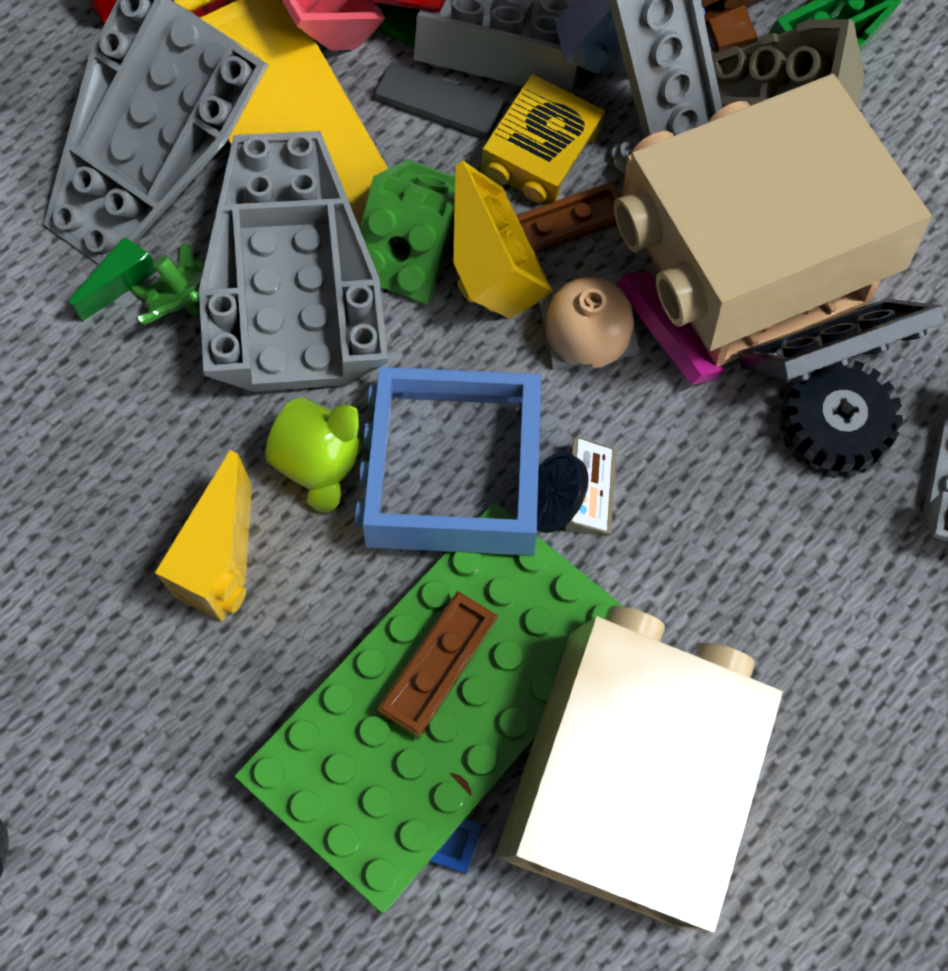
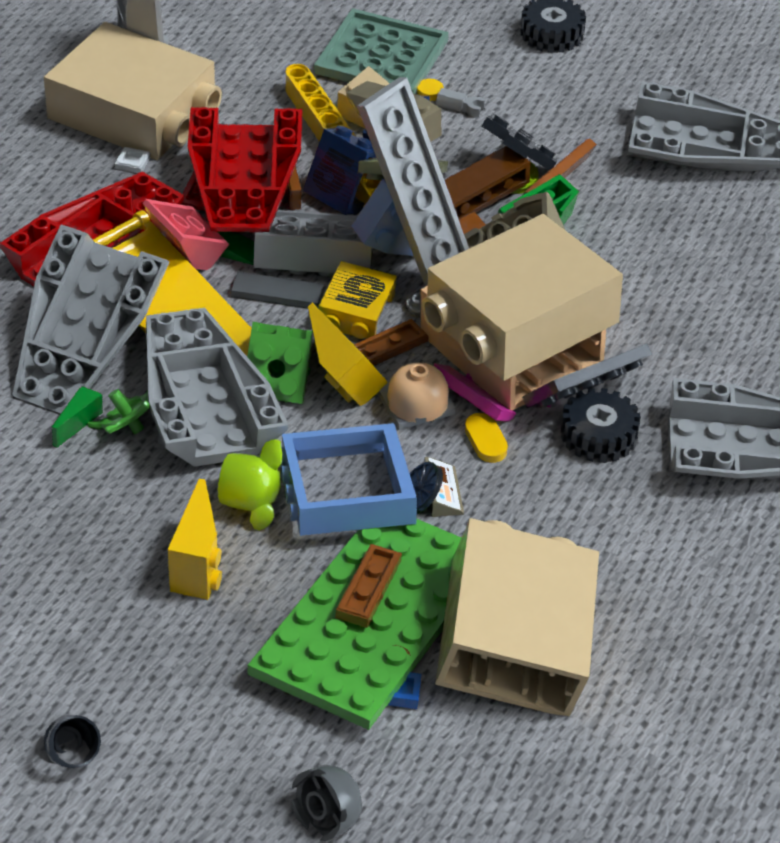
camera: 15 degrees left, 25 degrees down
(671, 407) = (486, 437): none -> yellow tile

